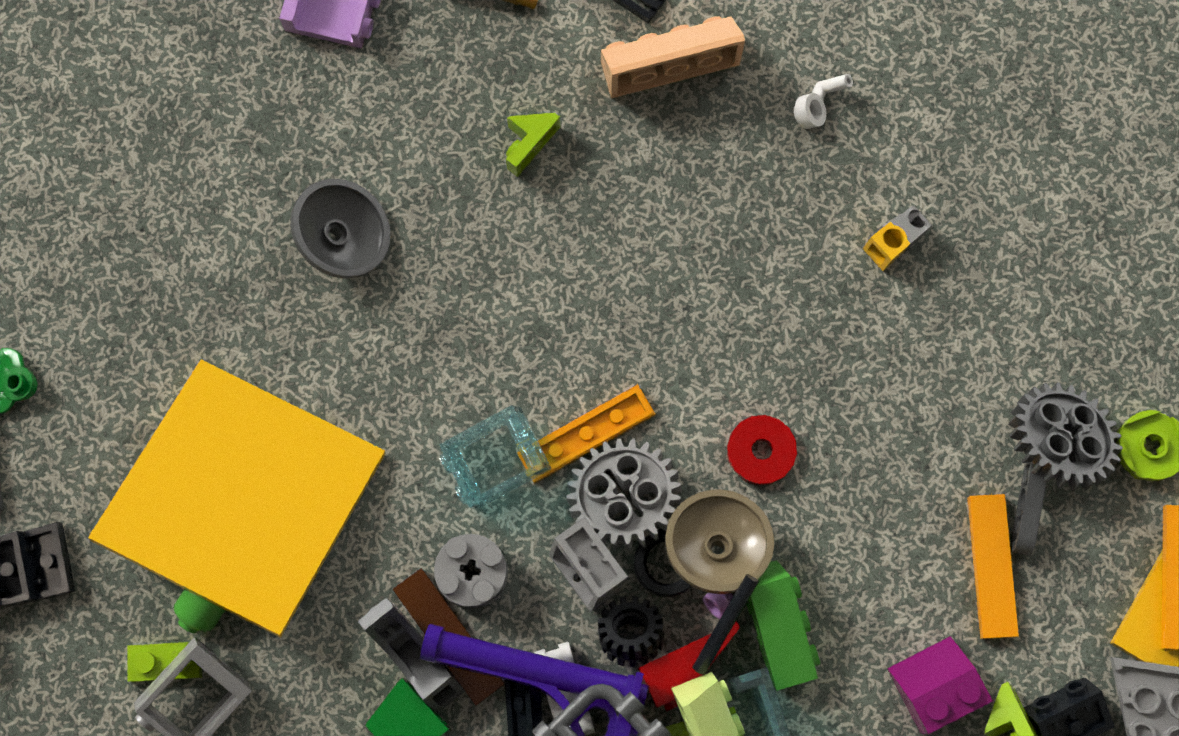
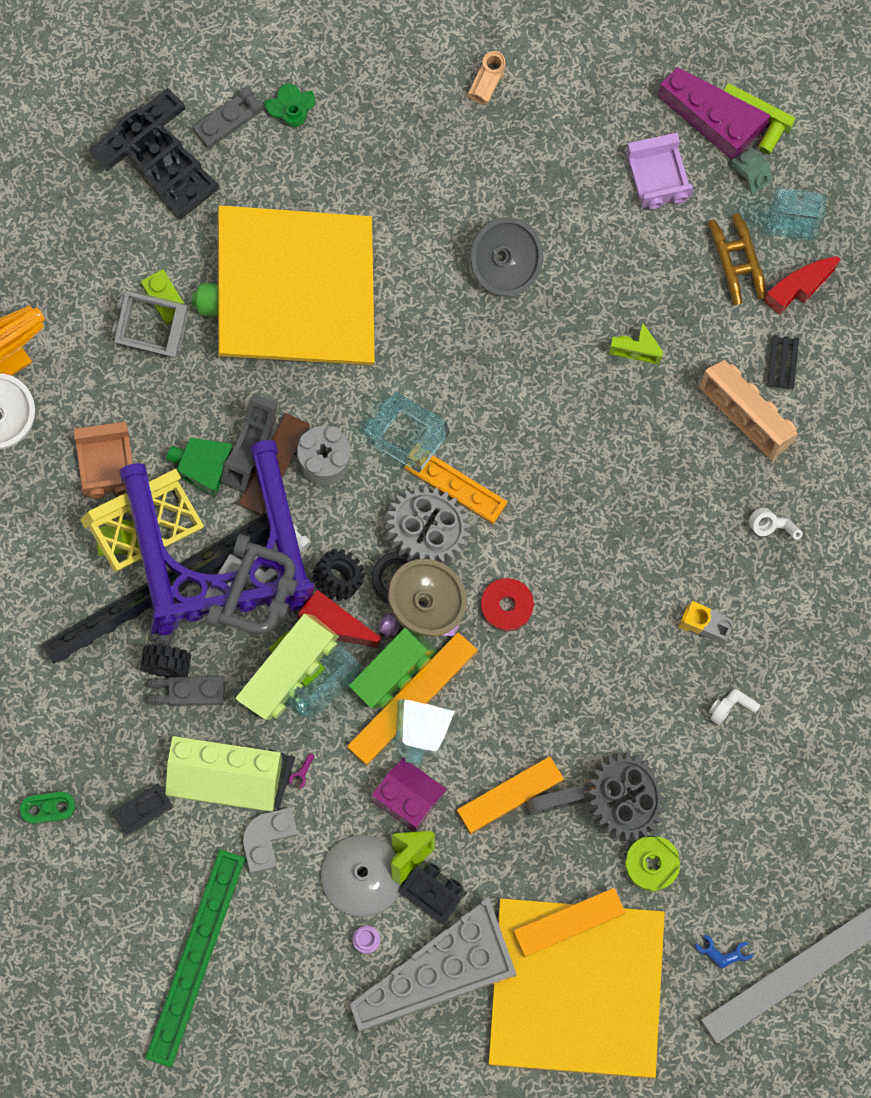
camera: 55 degrees right, 5 degrees down
(106, 135) = (487, 79): none -> light nougat piece
(584, 554) = (366, 521): light grey window -> none
(725, 624) = (373, 625): black bar -> none
(827, 631) = (419, 689): none -> light orange tile
(868, 630) = (420, 728): none -> clear light blue torso
(1008, 272) = (722, 708): none -> white plate

